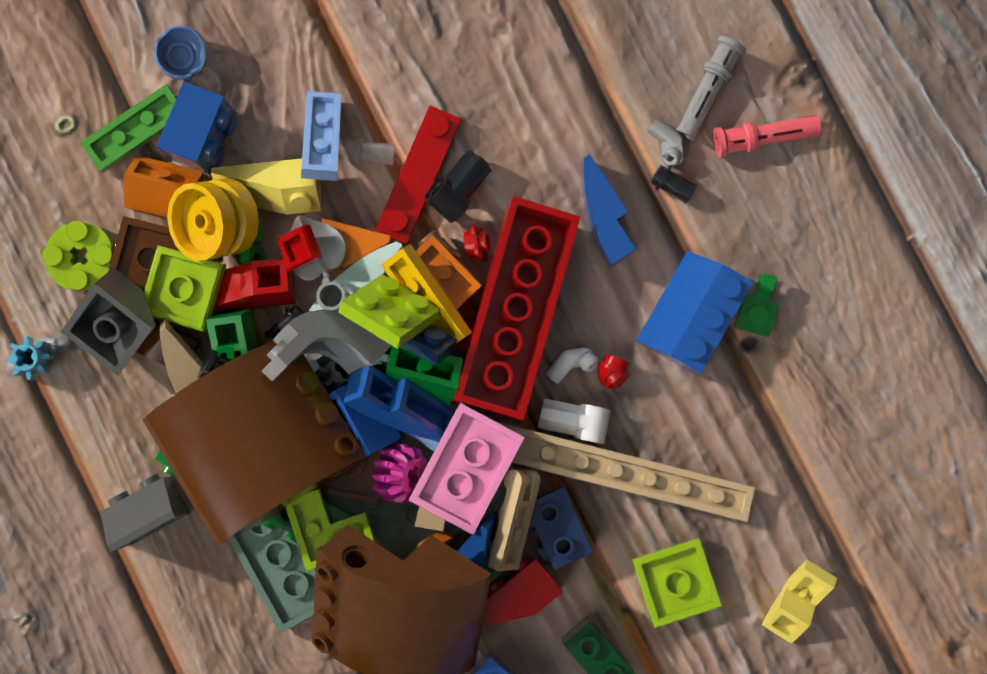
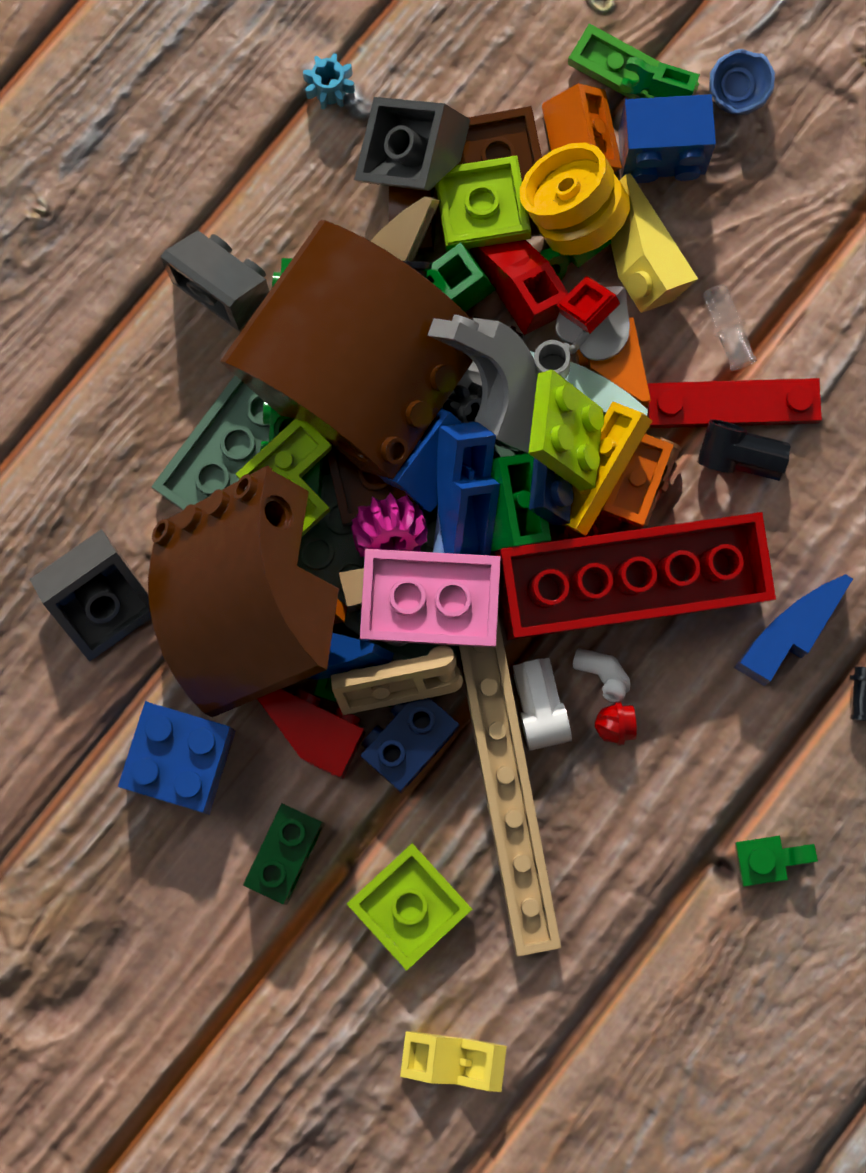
camera: 70 degrees right, 5 degrees down
(60, 249) = (468, 59): lime plate -> none
(153, 110) = (660, 80): none -> green plate
(321, 136) = (724, 273): light blue plate -> none
(477, 243) = (688, 502): red plate -> none
(694, 312) = (730, 785): blue slope -> none

